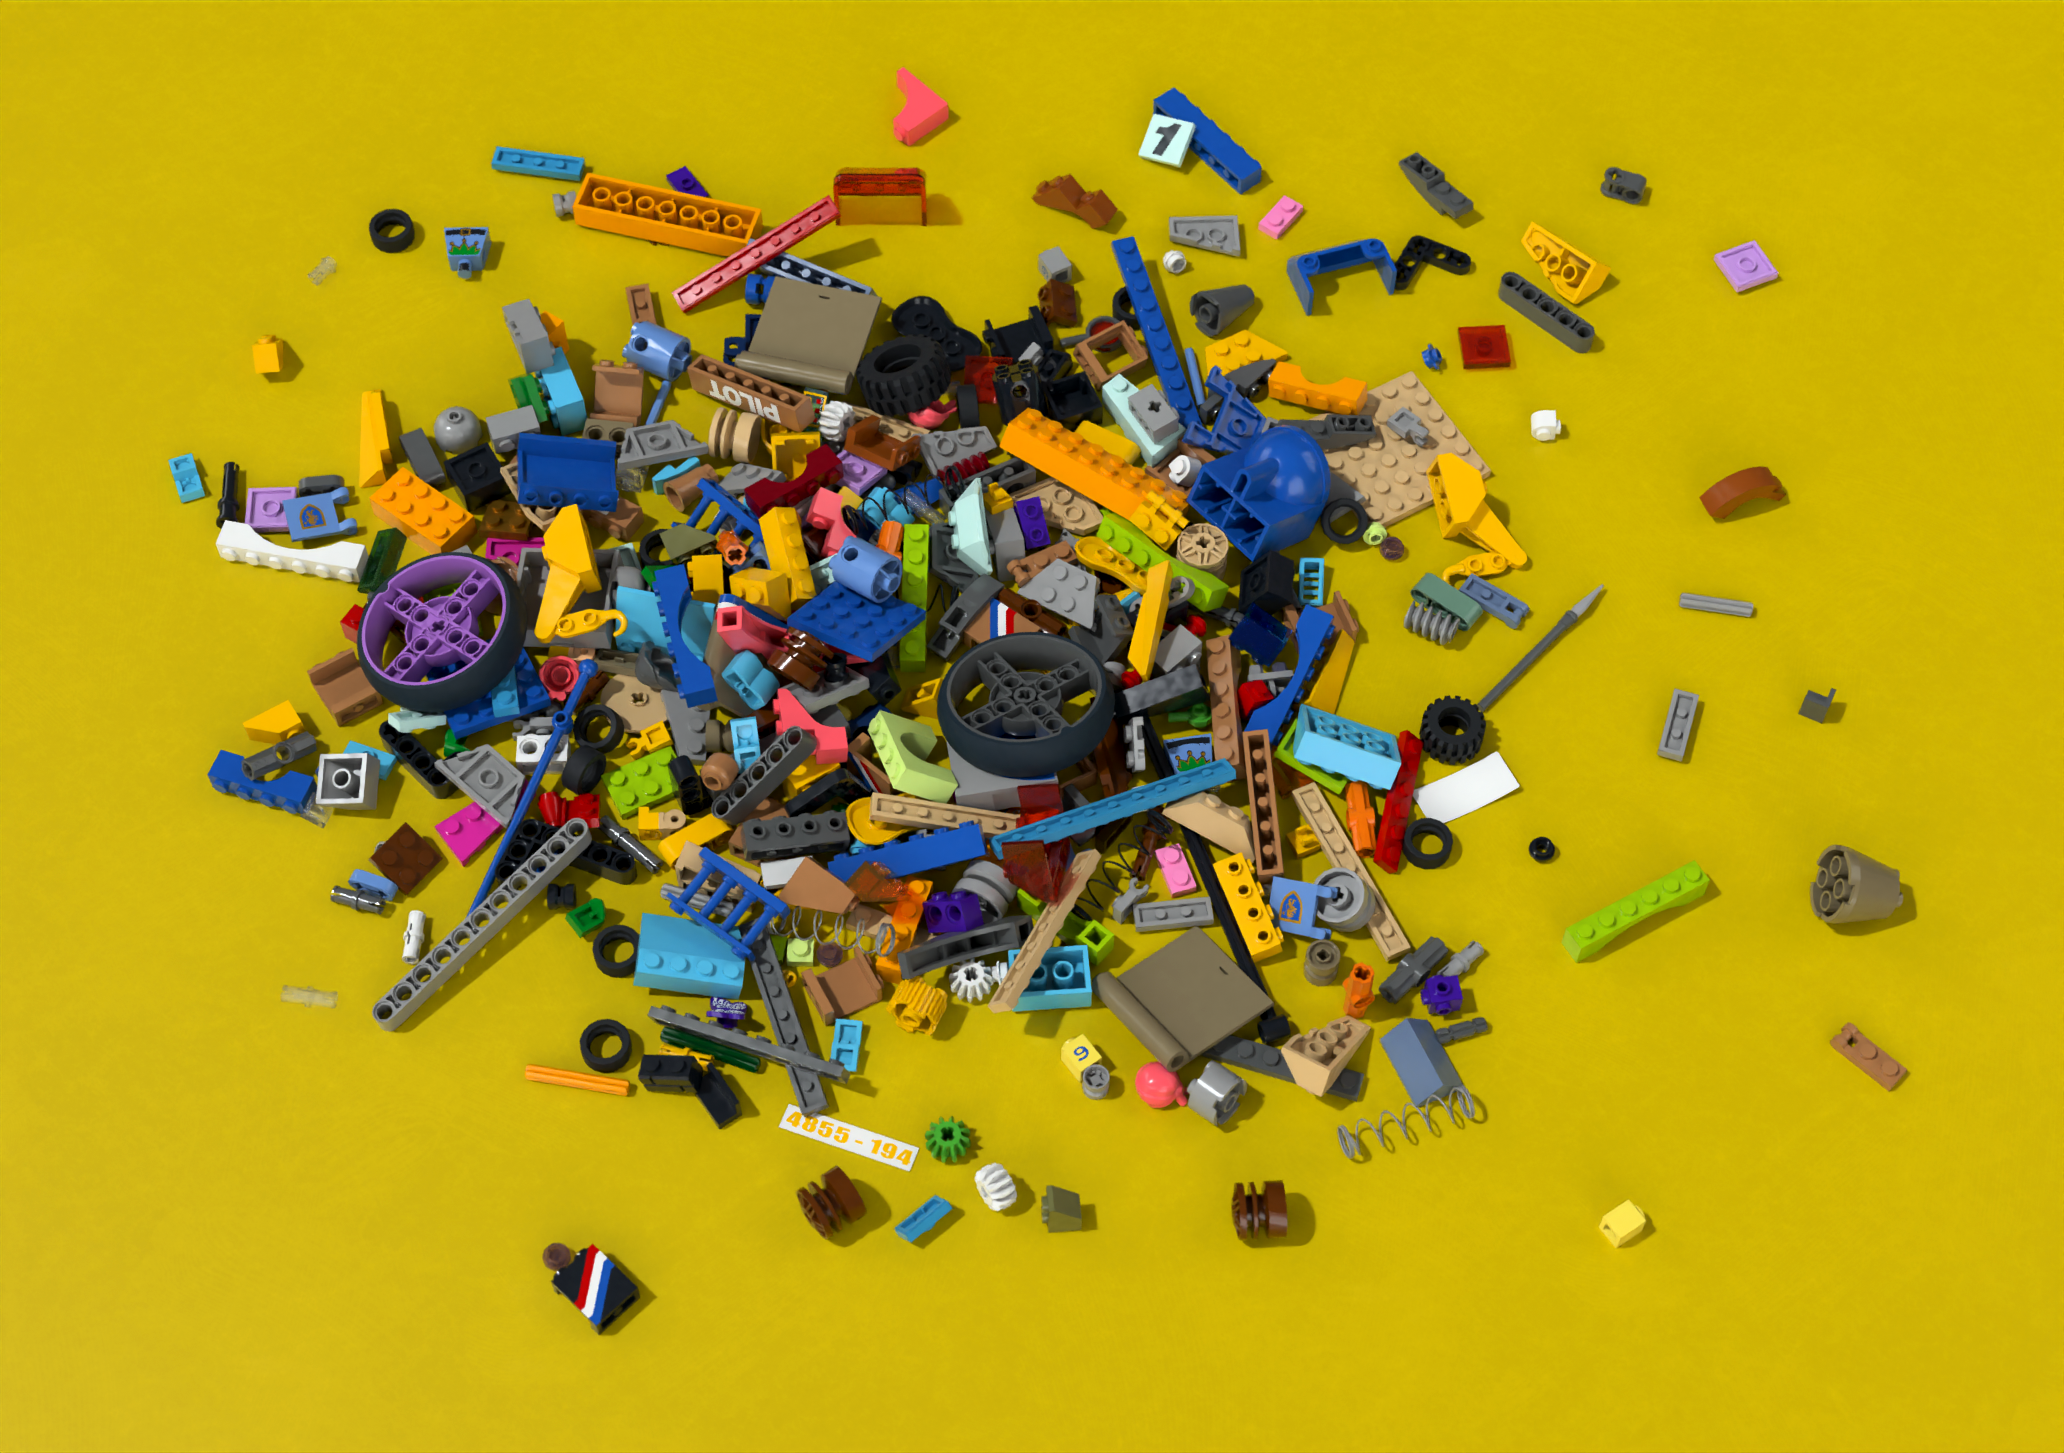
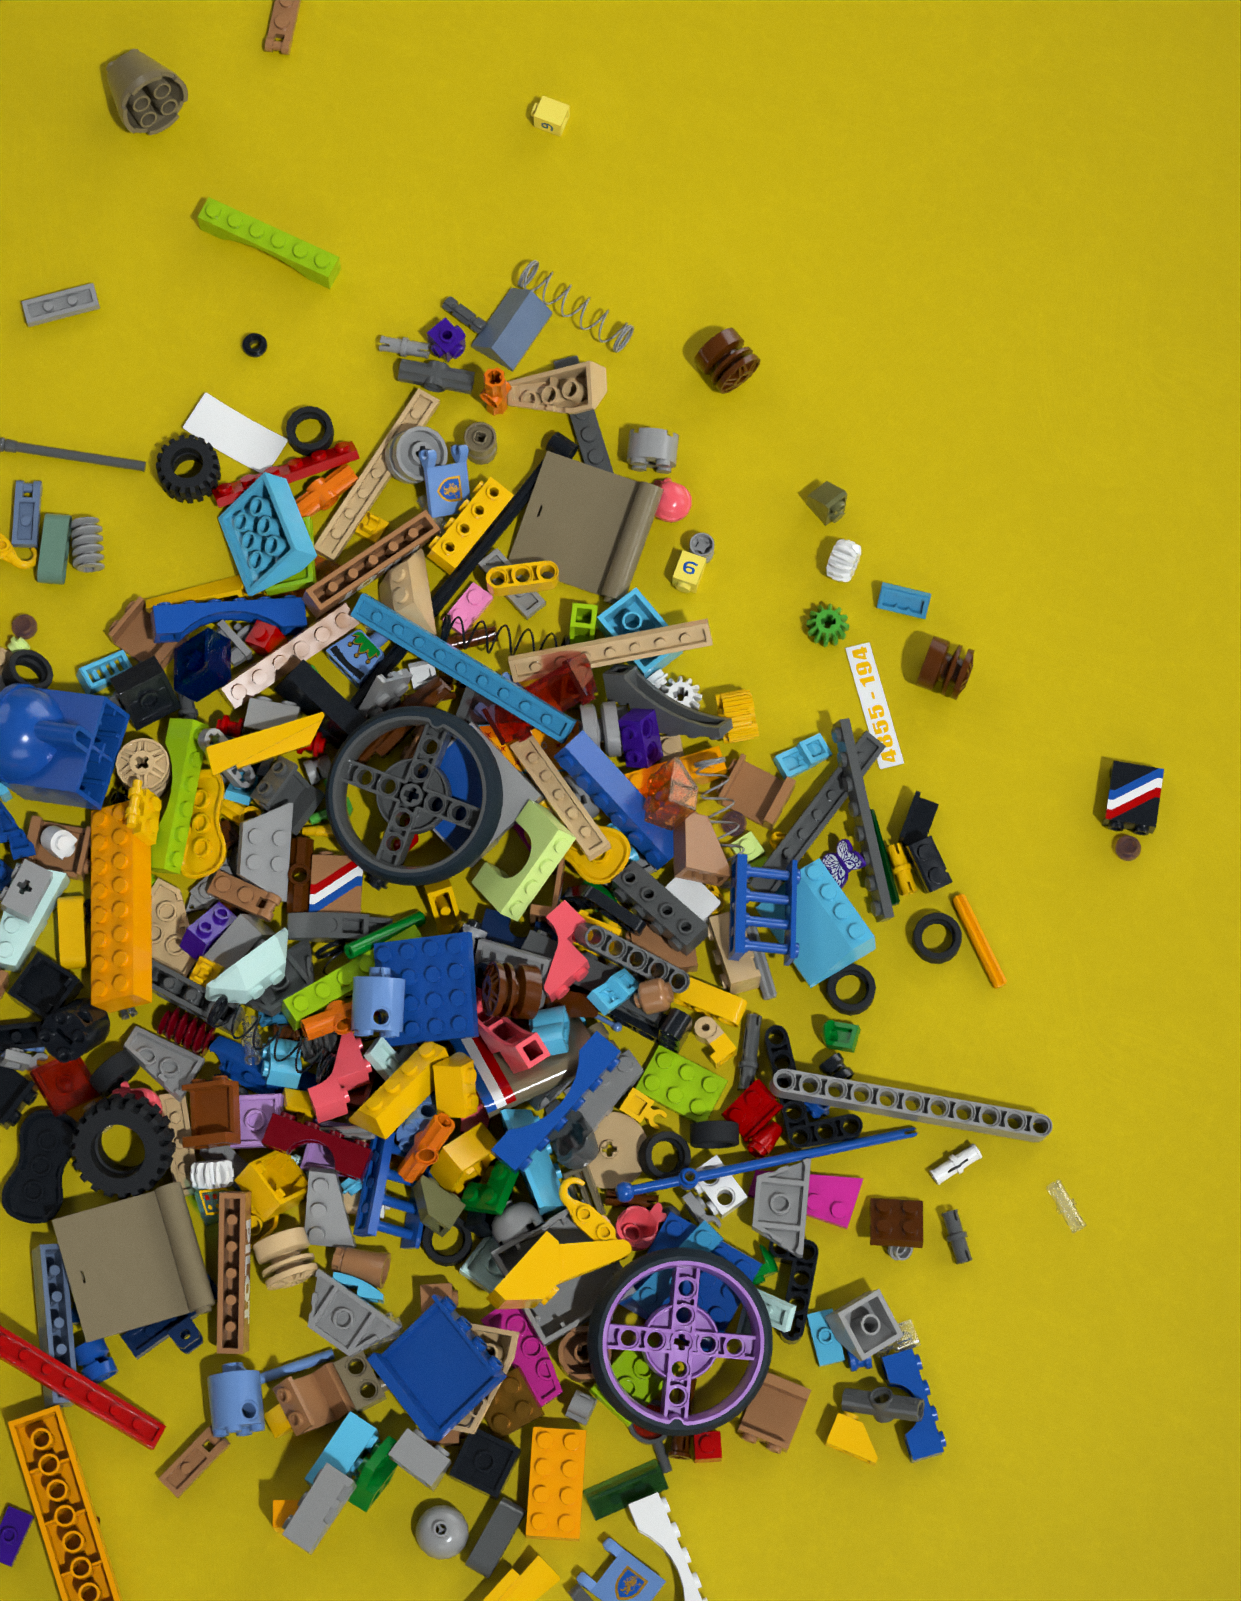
camera: 125 degrees left, 15 degrees up
(373, 884) = (935, 1234): medium blue beam -> none
(933, 636) = (383, 934): none -> green piece
(1124, 903) = (523, 622): light grey plate -> none
(1167, 903) = (533, 584): none -> yellow beam

